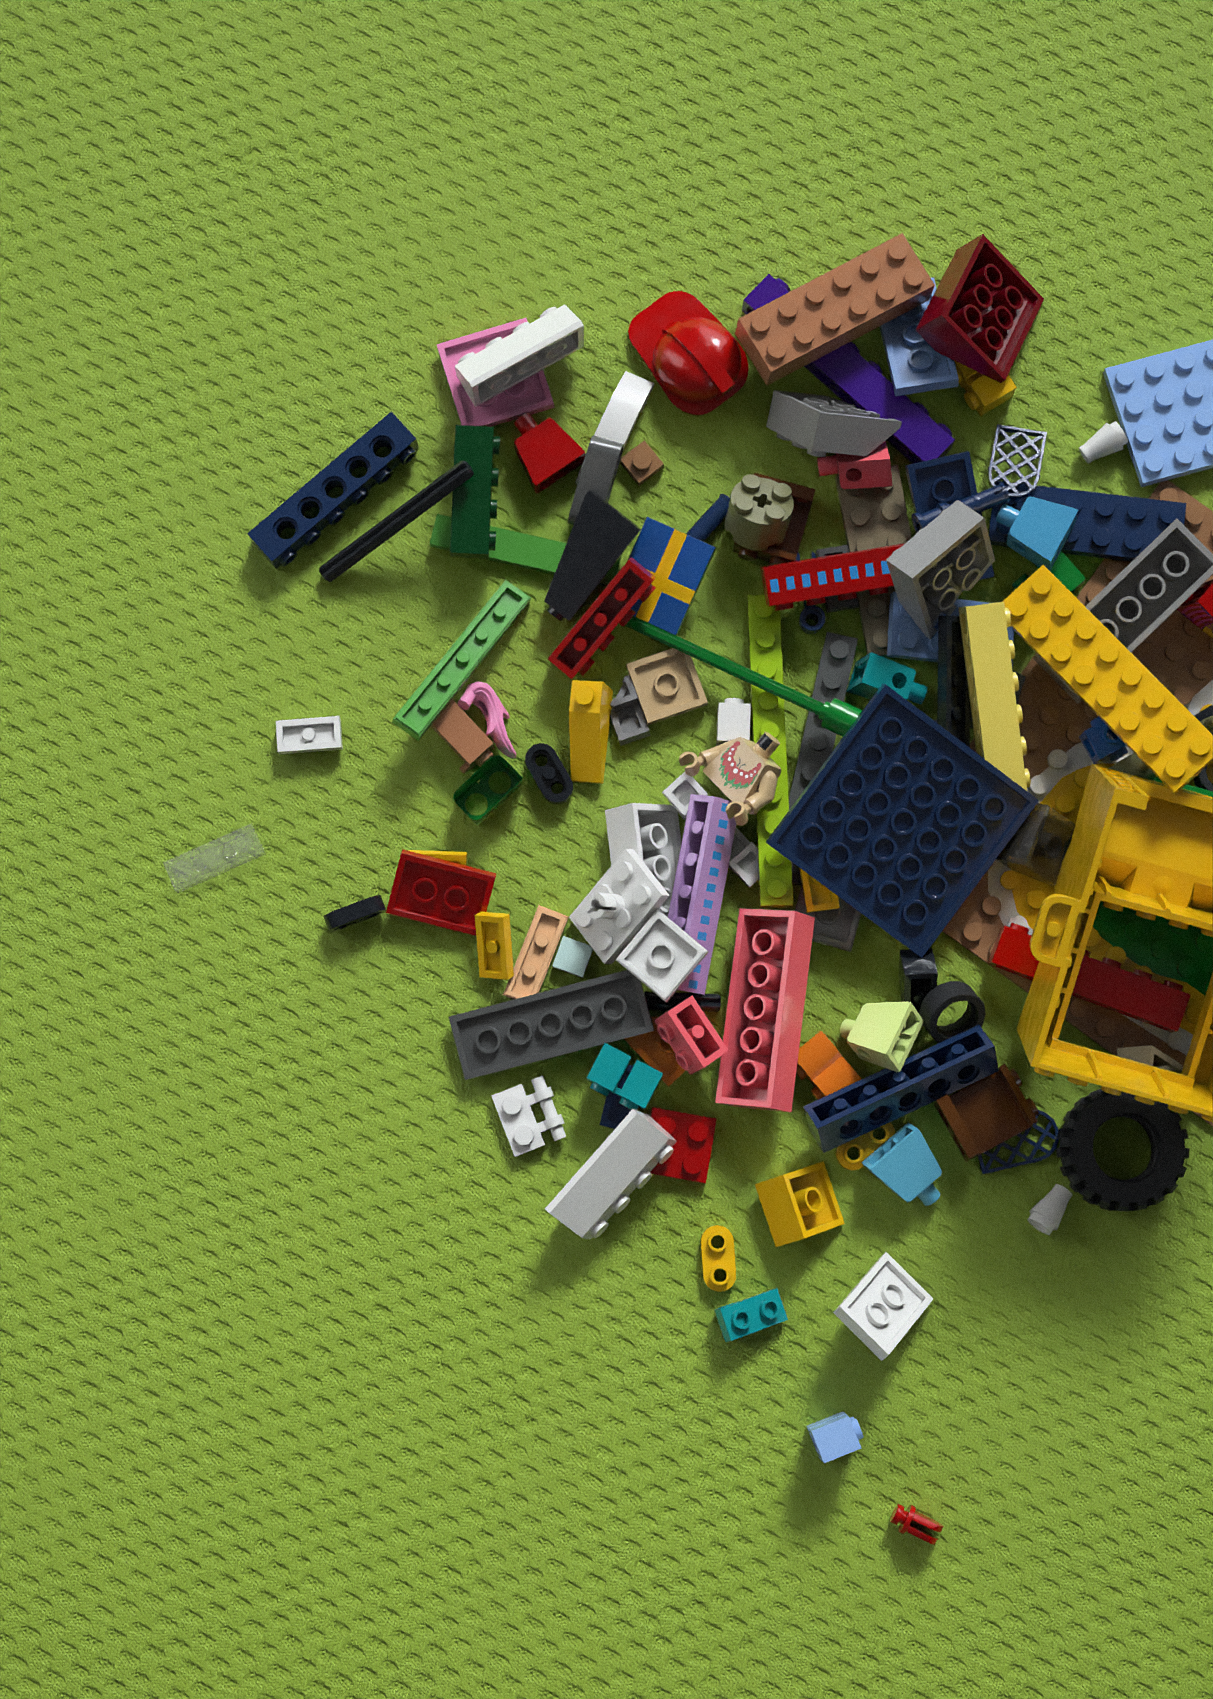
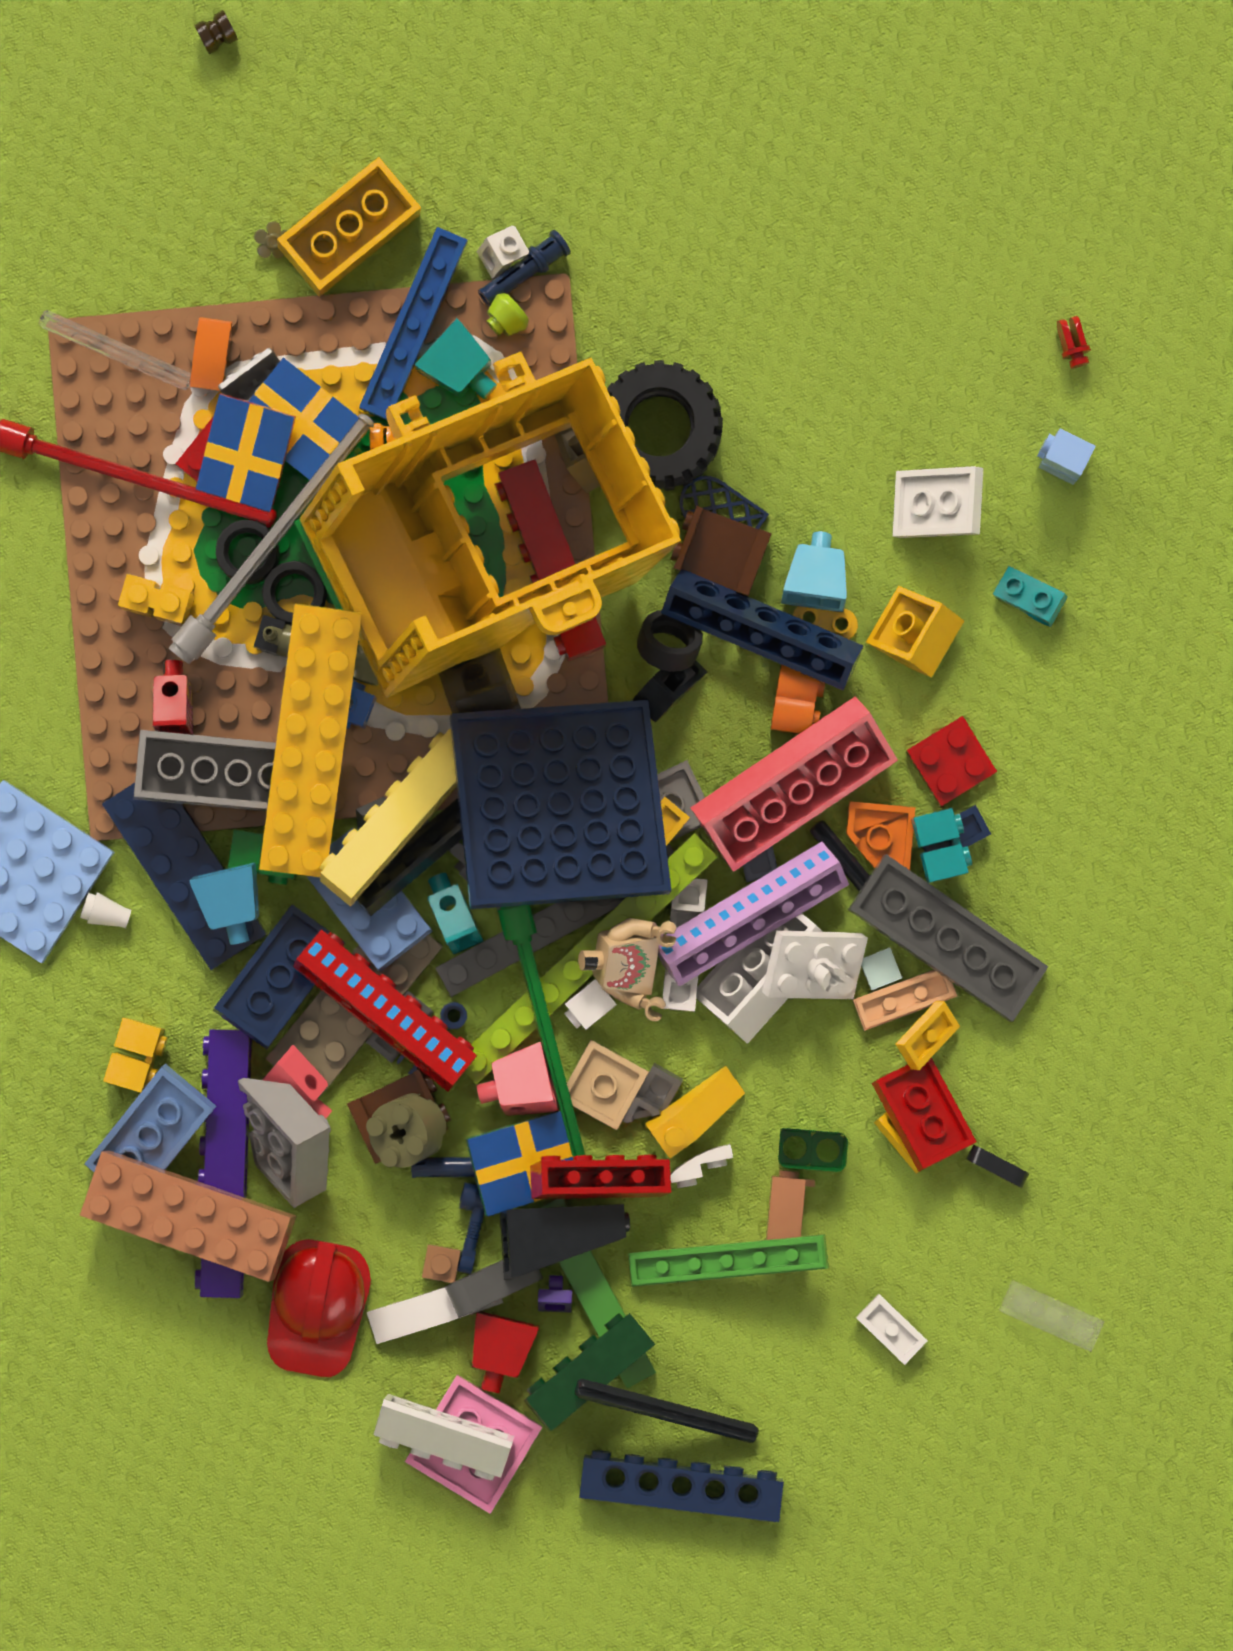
camera: 130 degrees left, 5 degrees up
(489, 703) = (744, 1201): bright pink piece -> none
(519, 1120) = (1040, 898): white plate -> none
(546, 519) = (555, 1298): none -> dark purple tile
(550, 694) = (686, 1173): none -> white slope
(550, 774) = (755, 1113): black plate -> none
(612, 1175) = (1022, 788): white slope -> none
(662, 955) = (825, 896): white plate -> none
(668, 517) = (471, 1201): none -> dark blue brick
(690, 1035) = (866, 822): coral brick -> none
(718, 1258) = (1009, 657): yellow plate -> none
(720, 624) = (521, 1083): none -> coral torso
(726, 936) = (760, 865): none -> sand blue tile
(883, 1033) = (732, 679): yellowish green torso -> none
(940, 564) = (330, 948): light grey wedge -> none
(978, 502) = (281, 980): dark blue pin -> none
(980, 310) = (85, 1099): dark red slope -> none
(1002, 429) = (150, 982): window -> none
(1049, 1211) = (753, 440): white cone -> none

